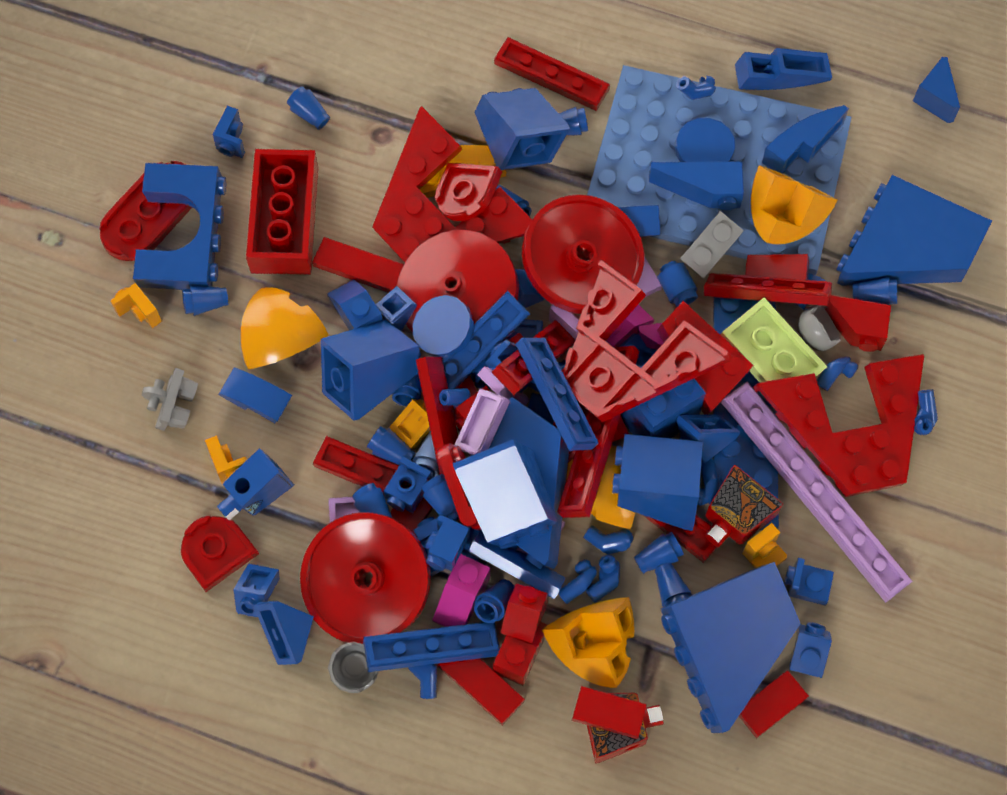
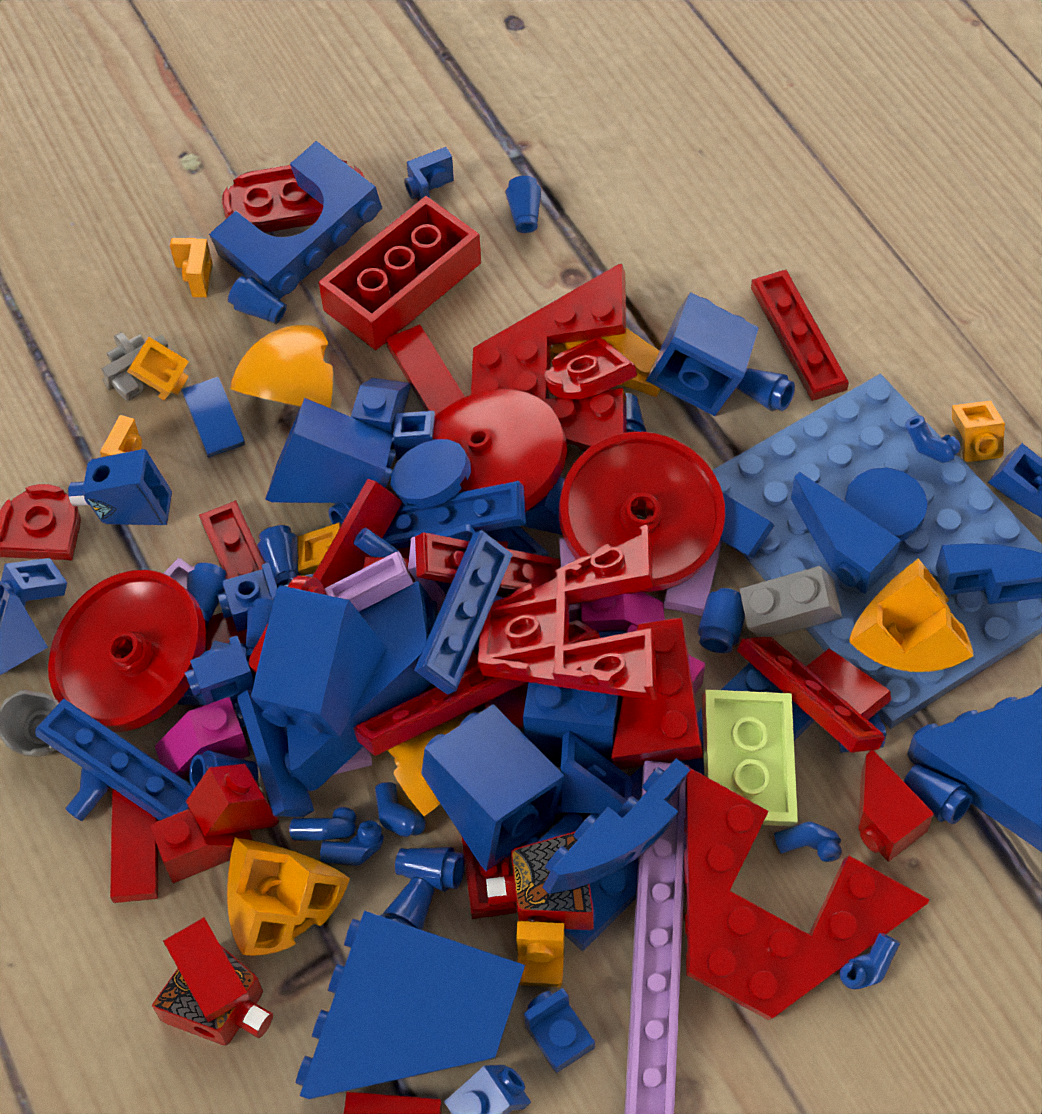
camera: 45 degrees right, 10 degrees down
(196, 390) = (159, 368): none -> light orange bracket
(707, 58) = (980, 429): none -> light orange bracket
(763, 446) = (618, 837): none -> blue slope
(818, 328) = (831, 778): light grey hair -> none

